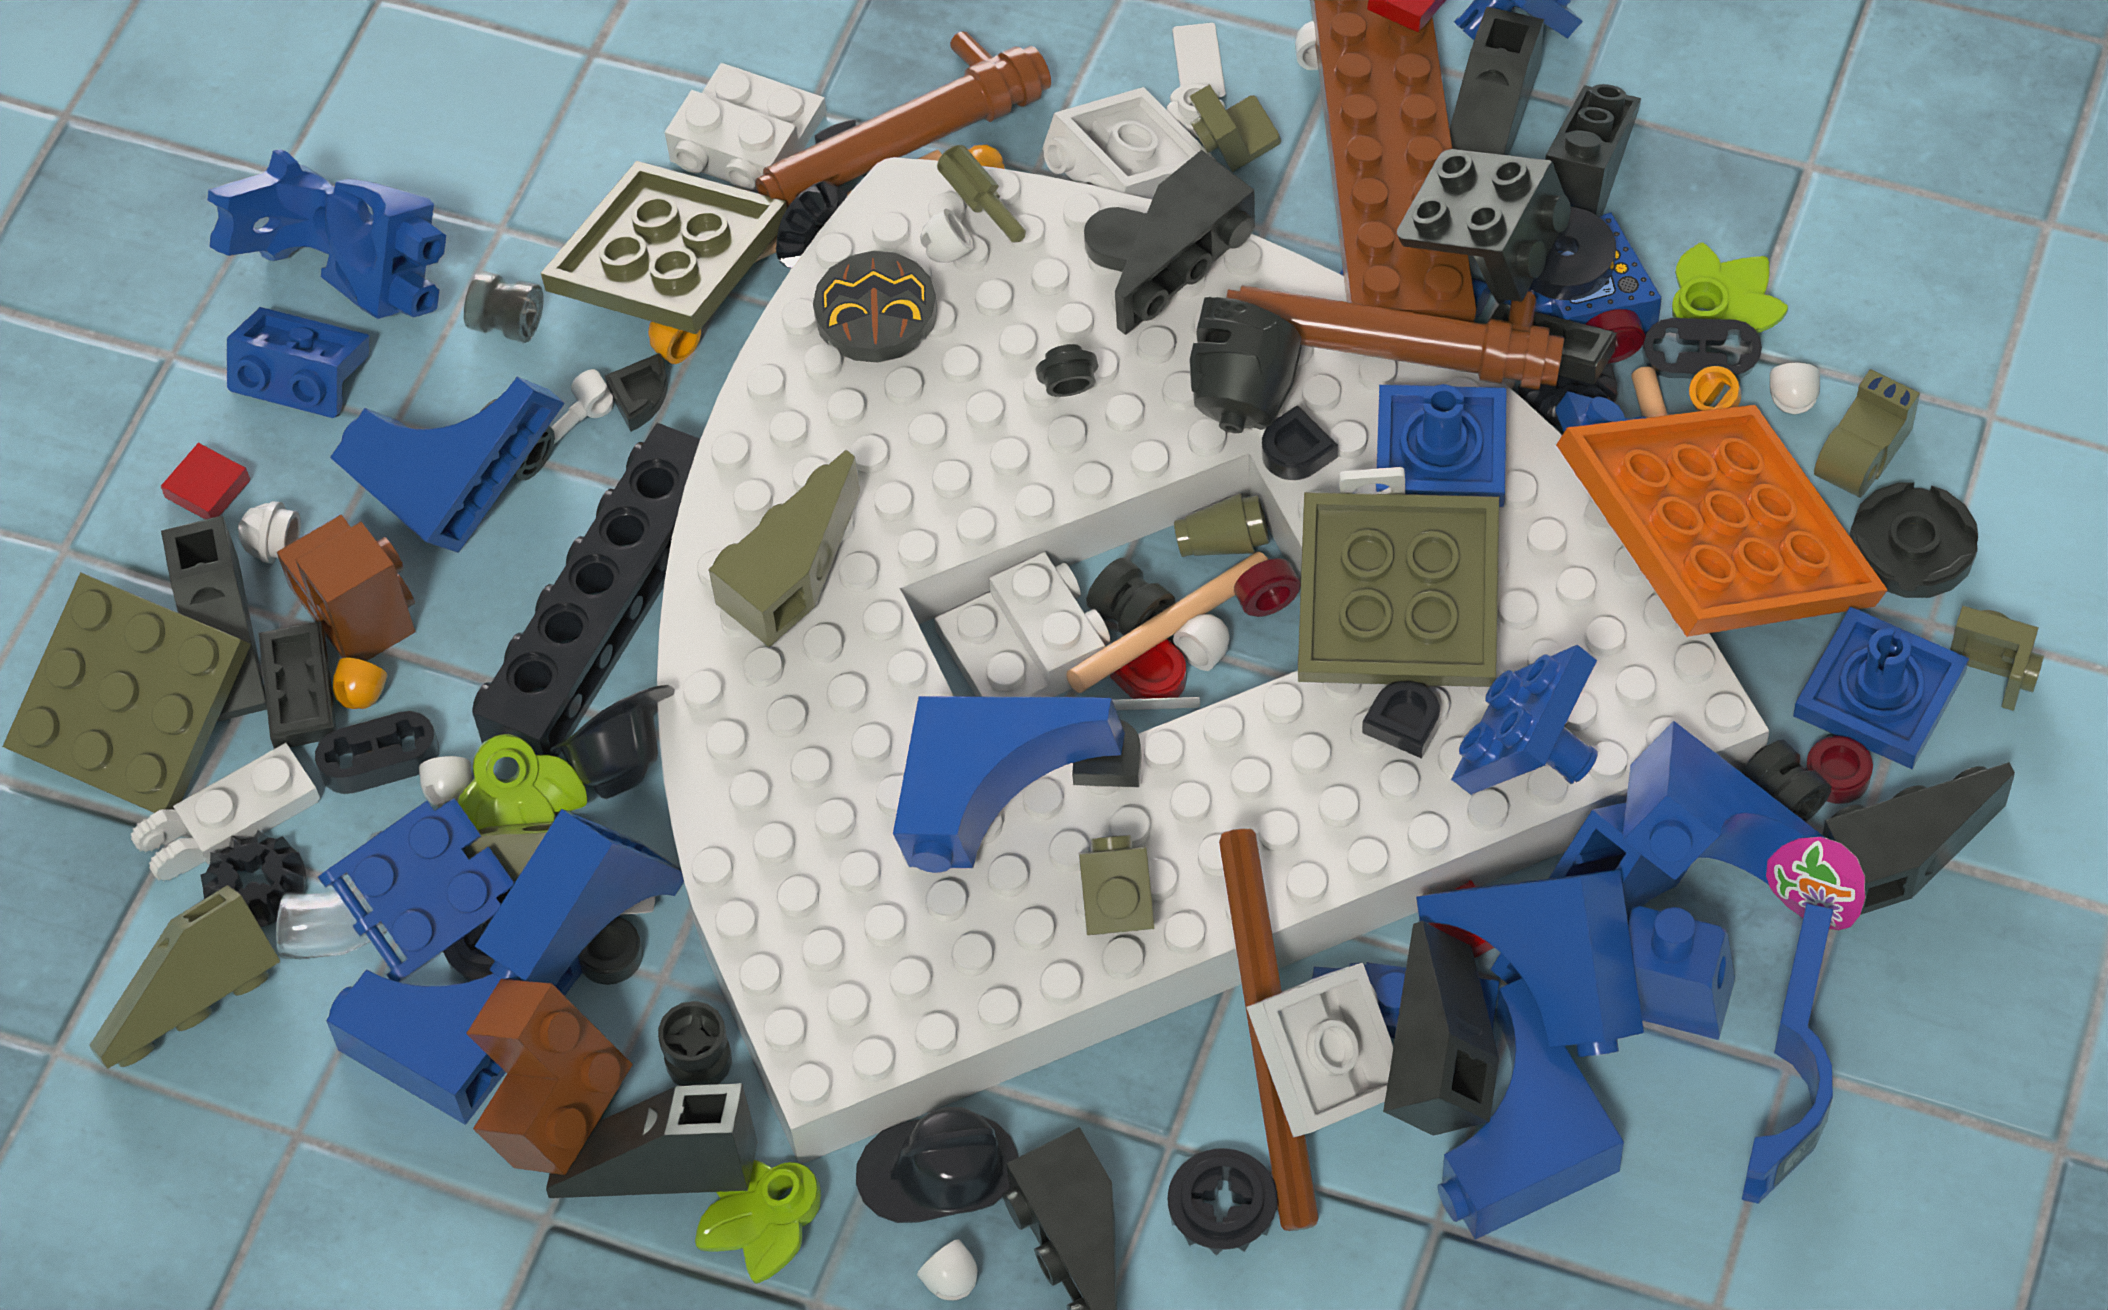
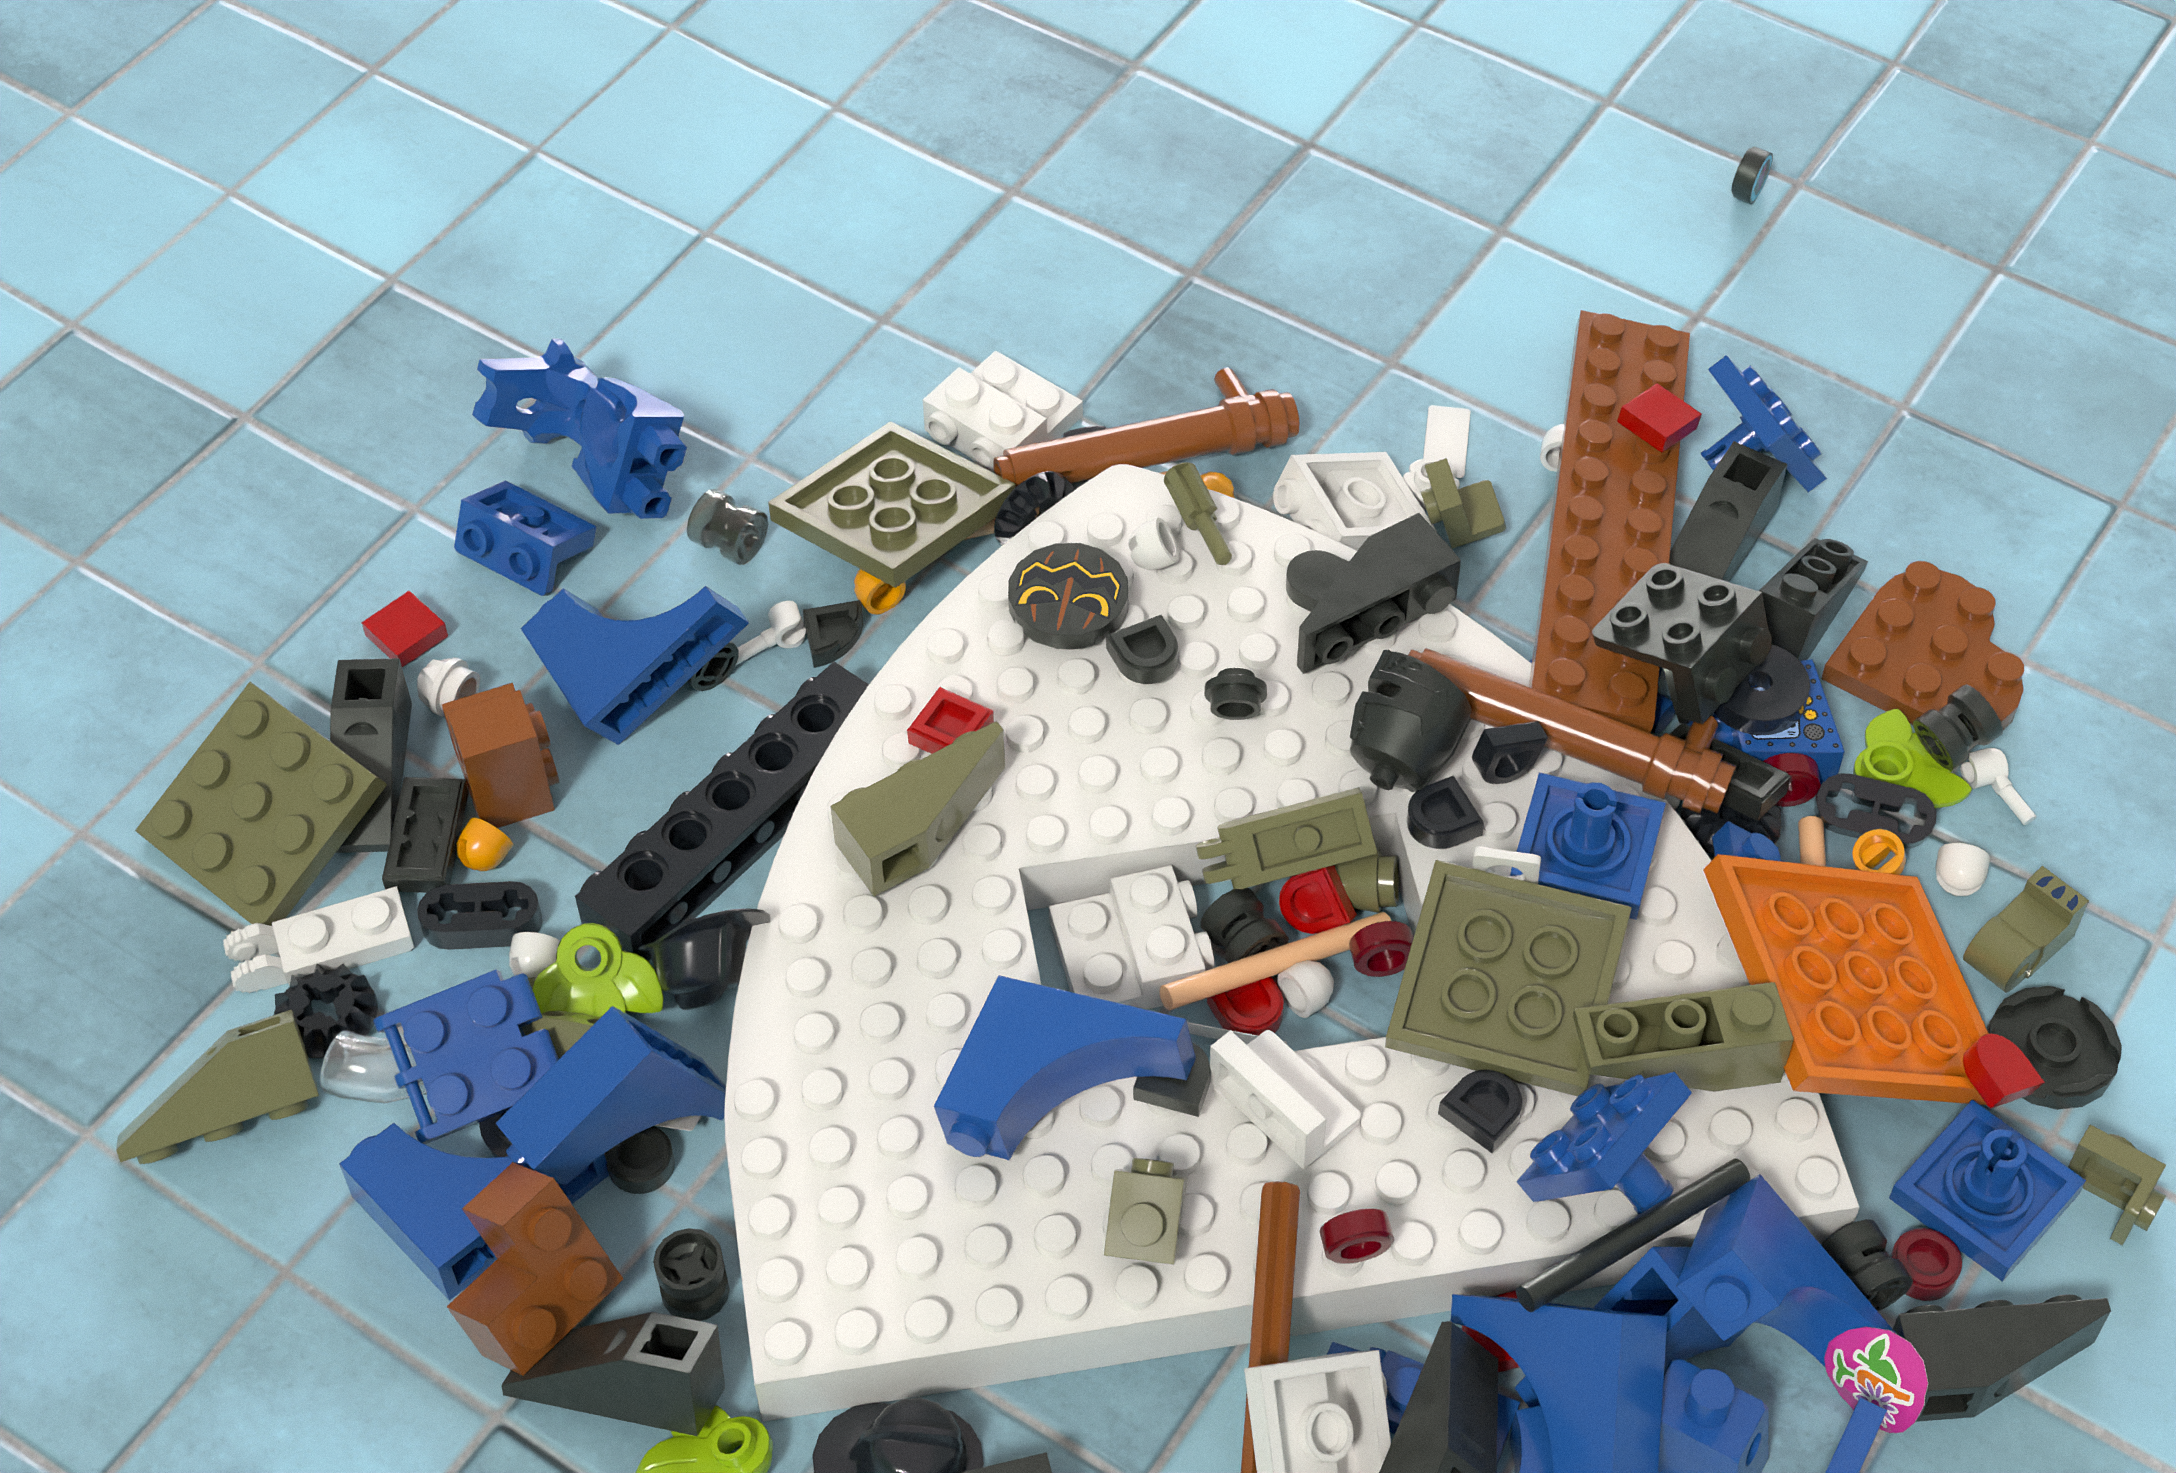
camera: 10 degrees right, 5 degrees down
(792, 459) = (946, 719): none -> red tile
(965, 346) = (1144, 651): none -> pearl dark grey tile
(1156, 503) = (1290, 840): none -> olive hinge
(1191, 554) = (1316, 901): none -> red tile
(1212, 749) = (1281, 1095): none -> white panel
(1317, 863) = (1356, 1236): none -> dark red tile
(1345, 370) = (1508, 751): none -> black tile
(1570, 803) = (1632, 1235): none -> pearl dark grey bar
(1595, 604) = (1704, 1037): none -> olive slope
(1719, 182) = (1922, 643): none -> dark orange plate
(1763, 249) = (1958, 727): none -> pearl dark grey wheel
(1802, 282) = (1991, 768): none -> white hand
(1870, 573) = (1999, 1070): none -> red tile

